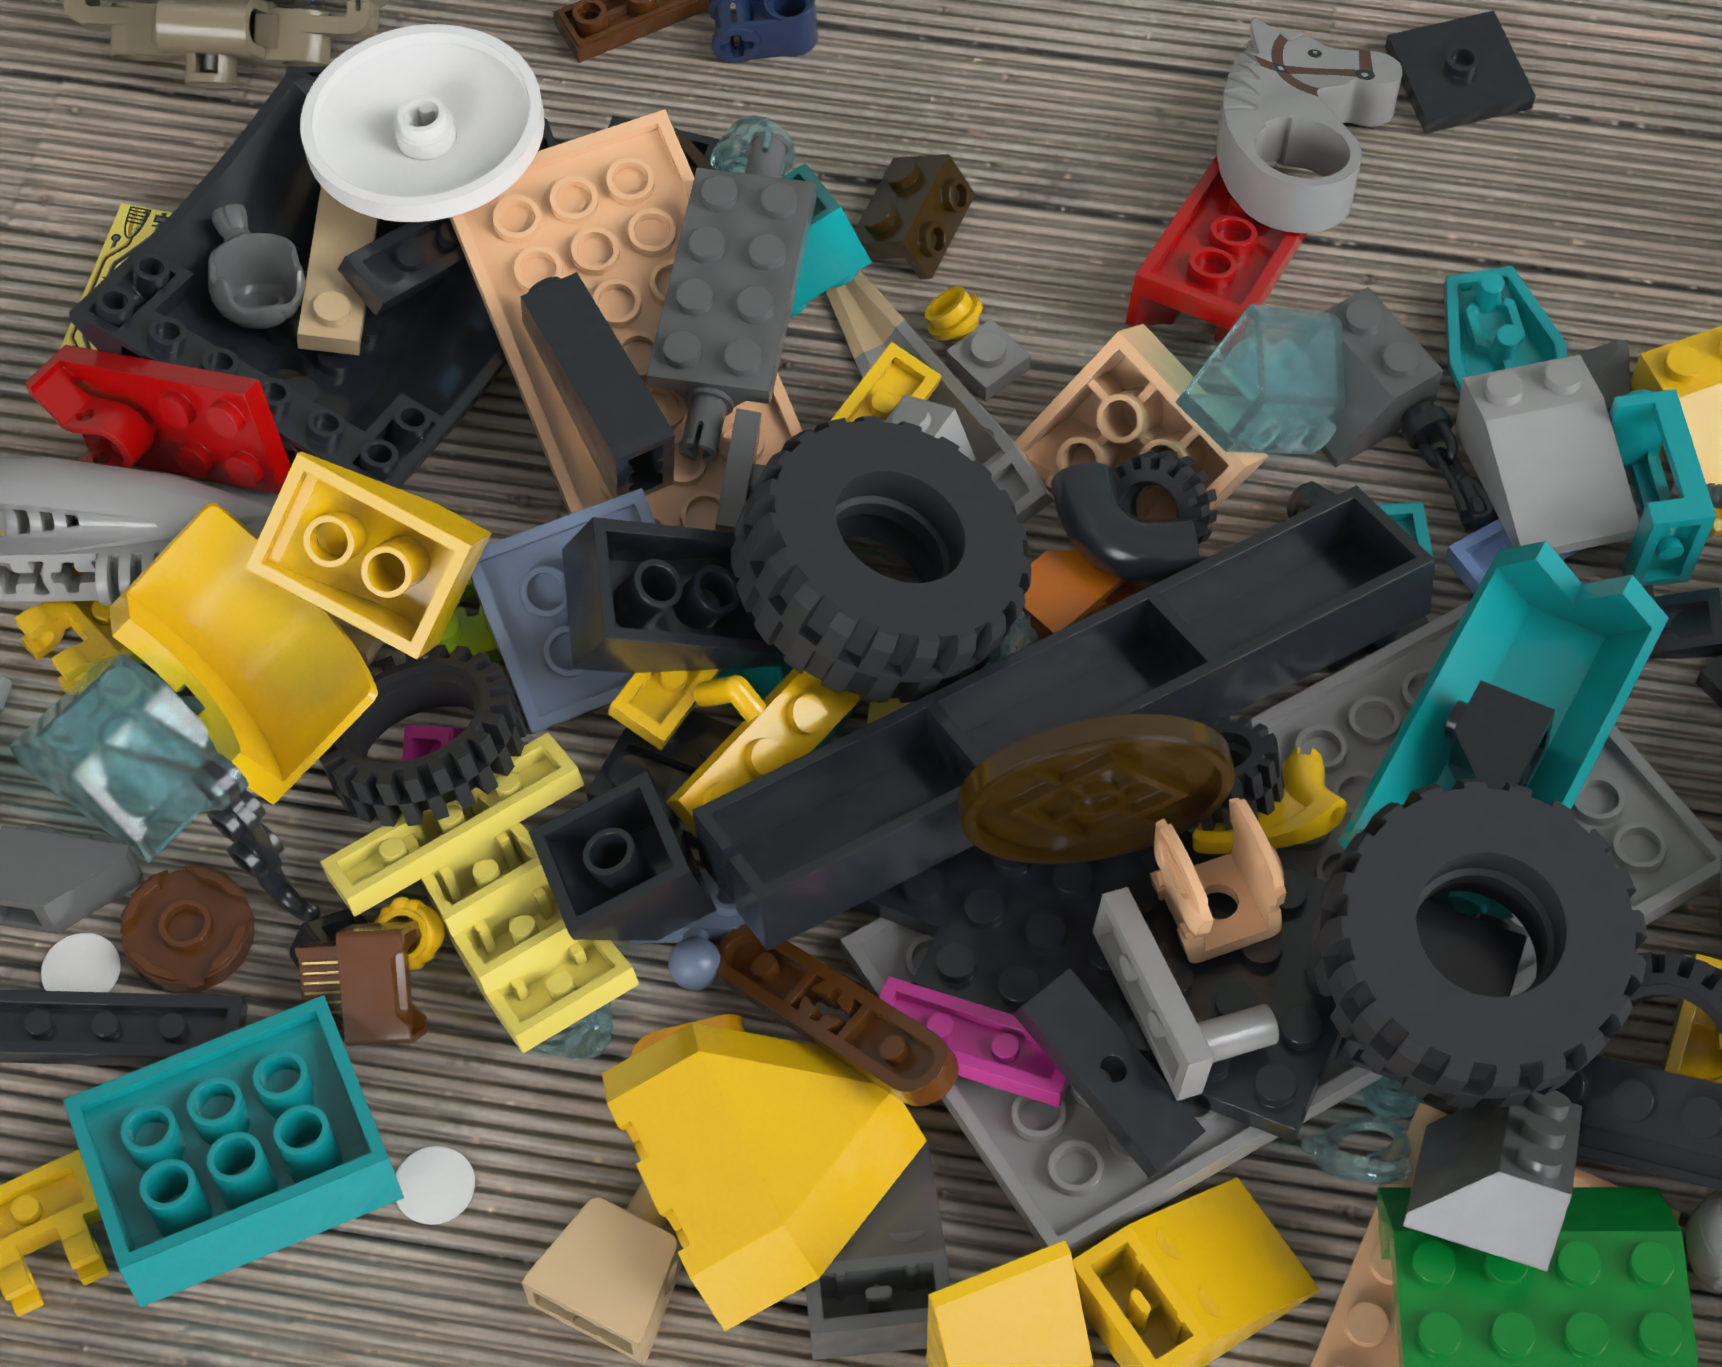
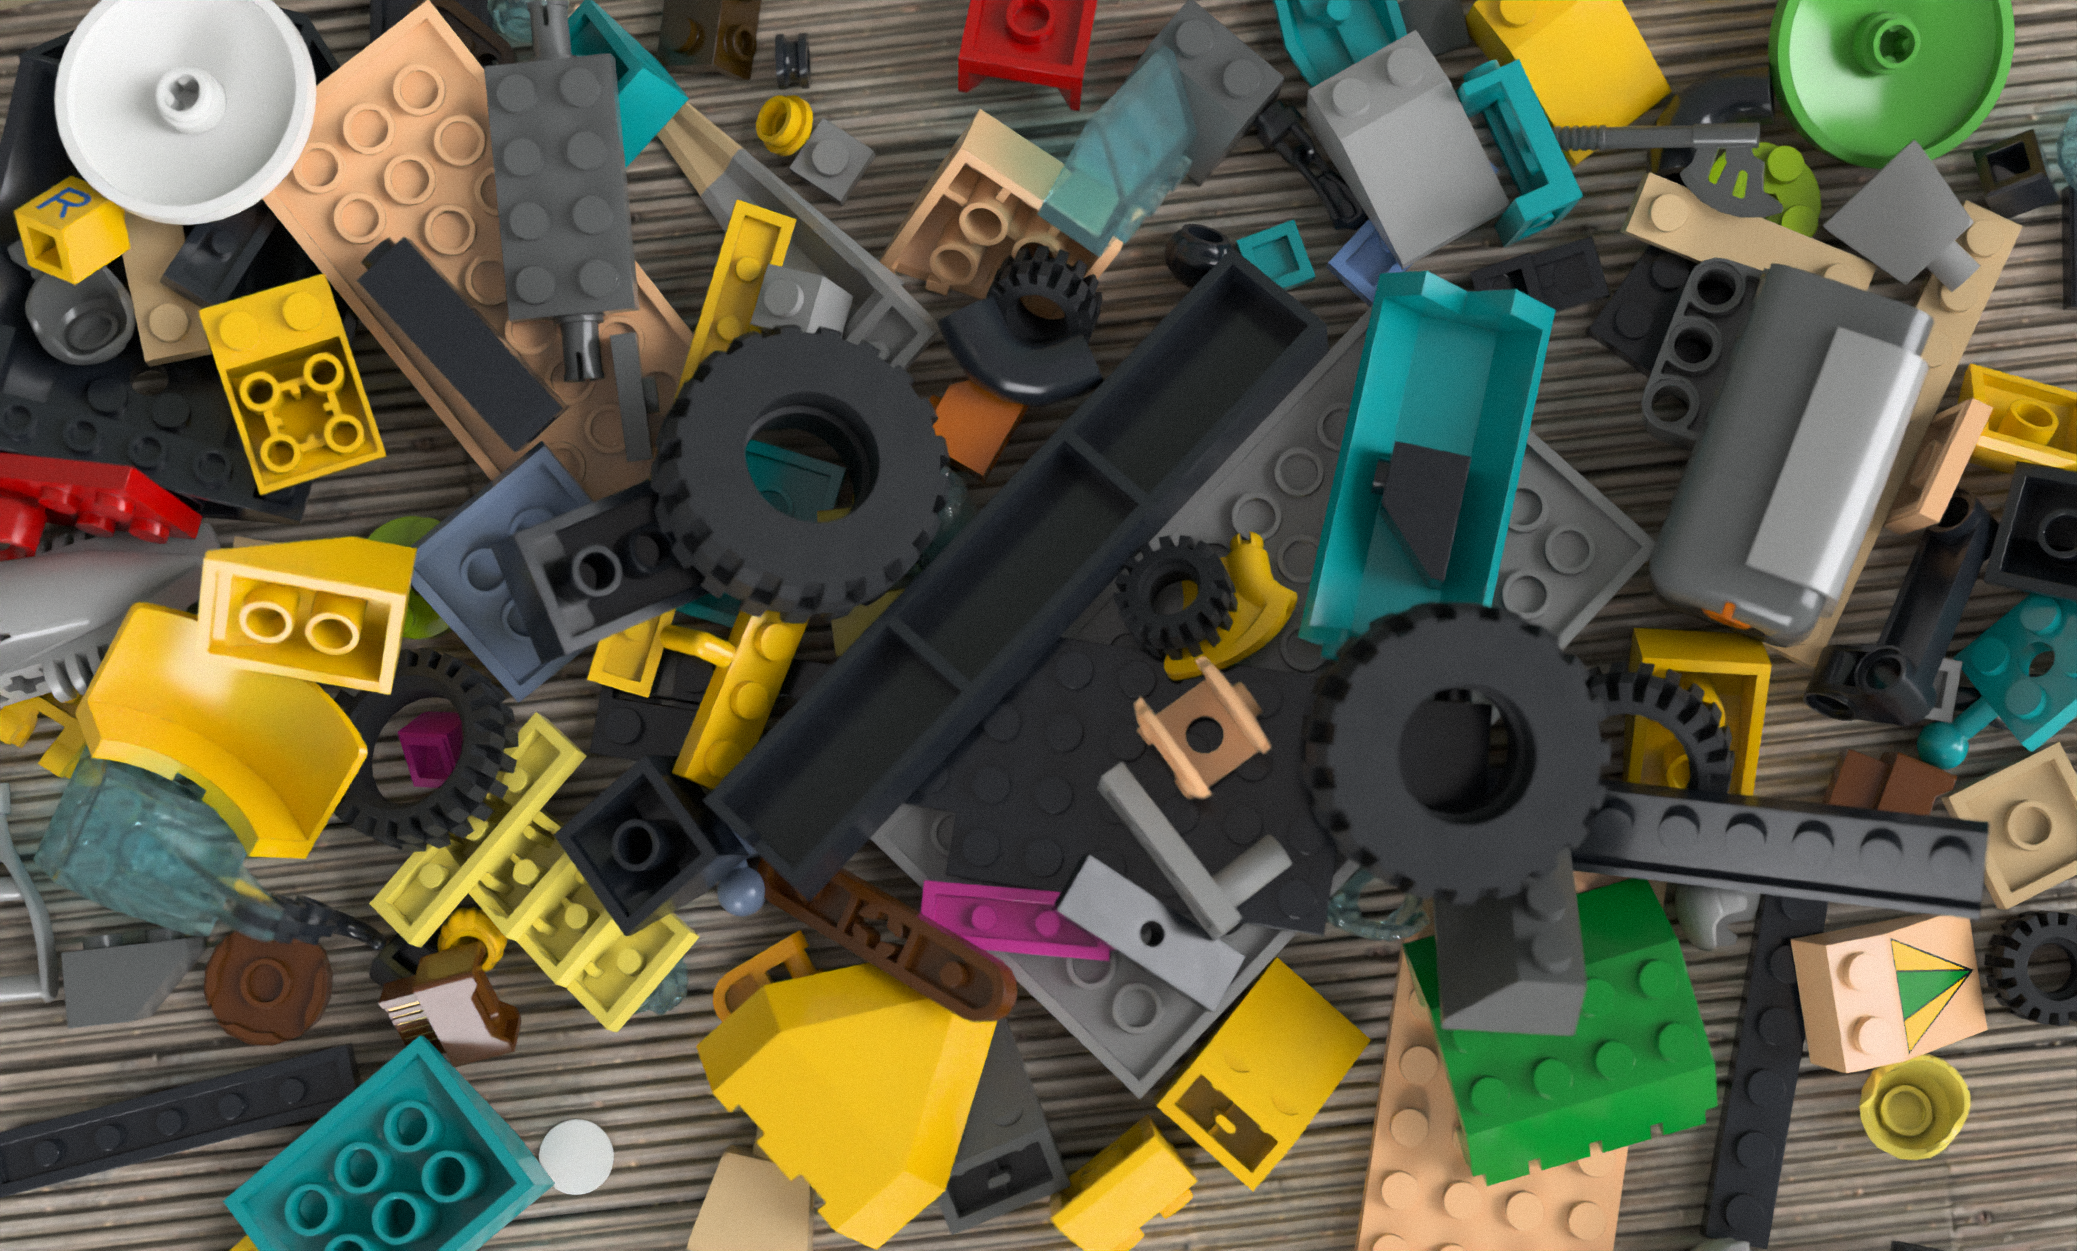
camera: 15 degrees left, 25 degrees up
(81, 964) = (185, 1045): white sticker -> none
(278, 203) = (72, 230): none -> yellow brick
(427, 371) = (292, 383): none -> yellow slope
(977, 266) = (792, 61): none -> black bush
(1095, 788) = (1084, 687): dark brown plate -> none

